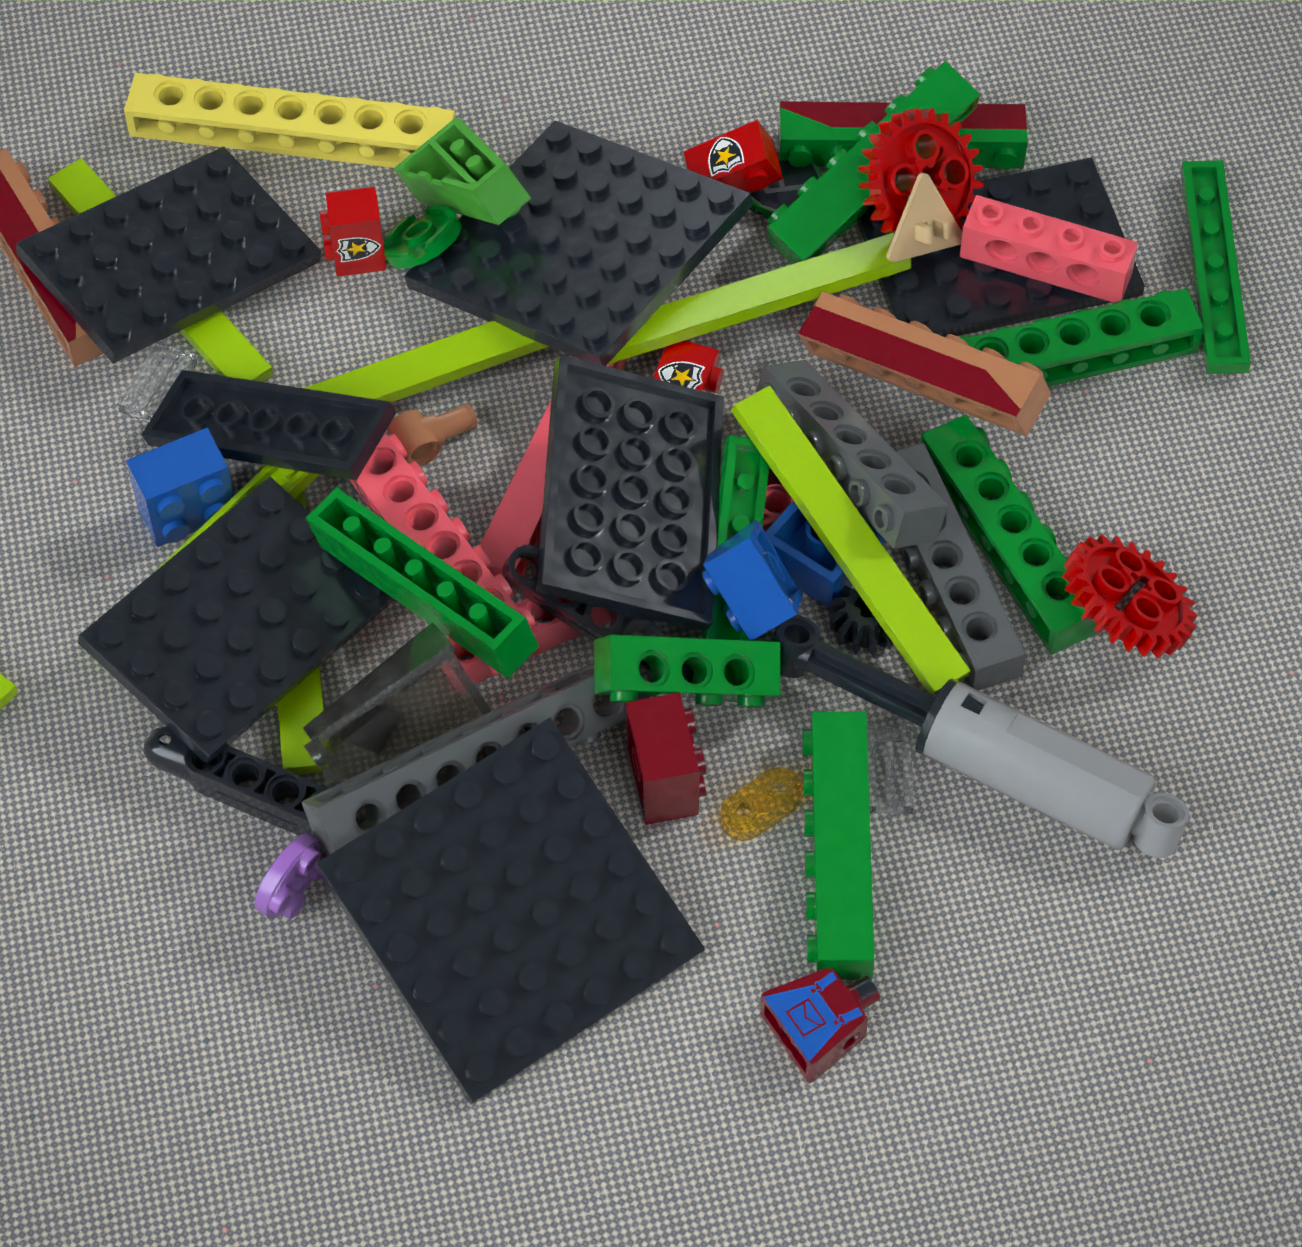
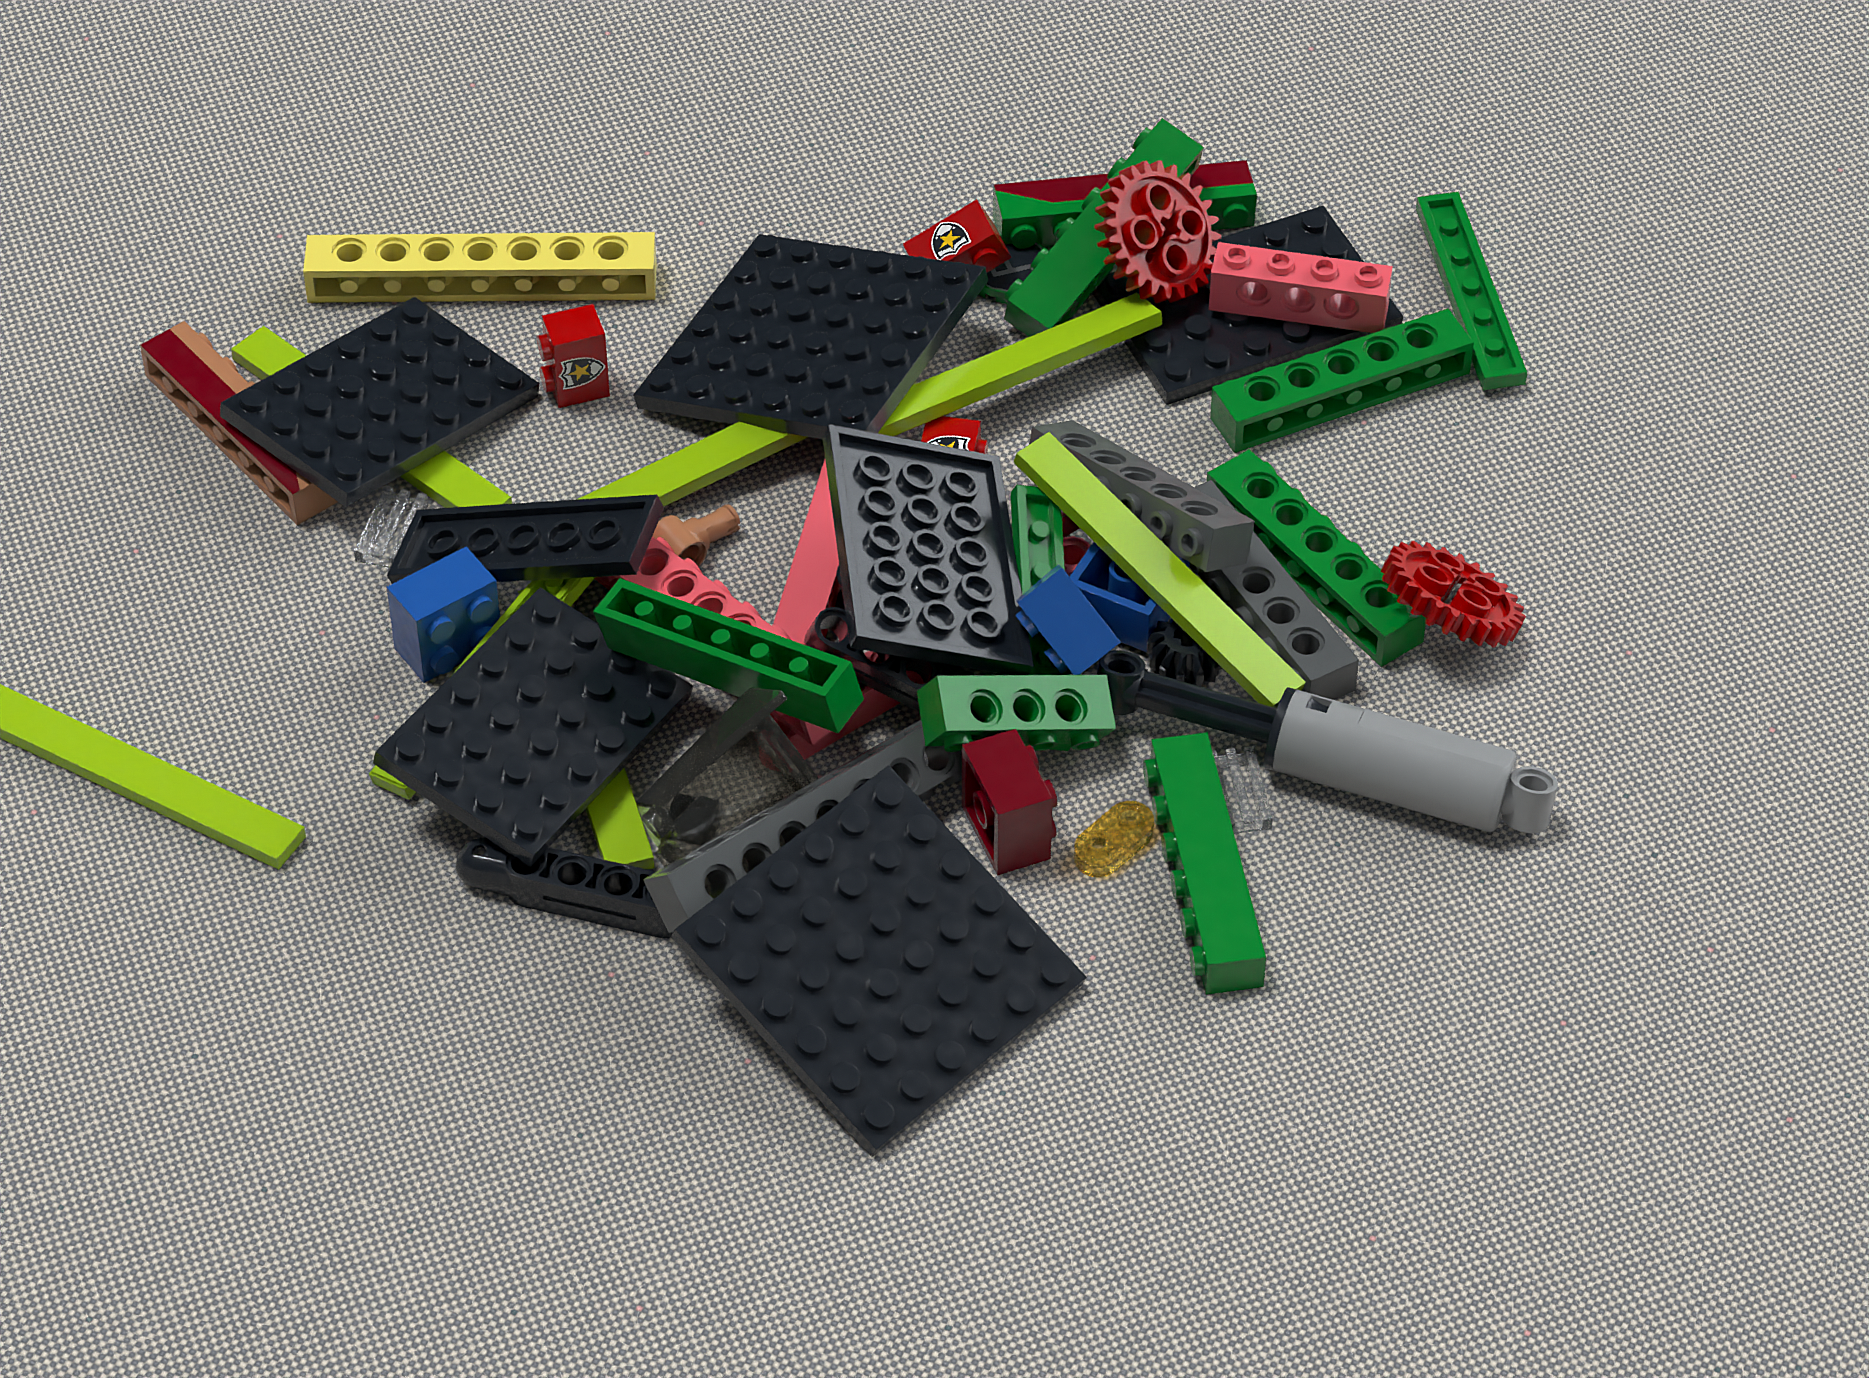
camera: 10 degrees left, 10 degrees down
(289, 878) = (641, 960): medium lavender tile -> none
(421, 239) = (647, 357): green tile -> none
(462, 174) = (680, 288): bright green wedge -> none
(818, 1018) = (1217, 1024): torso -> none
(924, 224) = (1170, 275): tan piece -> none
(926, 362) = (1197, 405): brick -> none

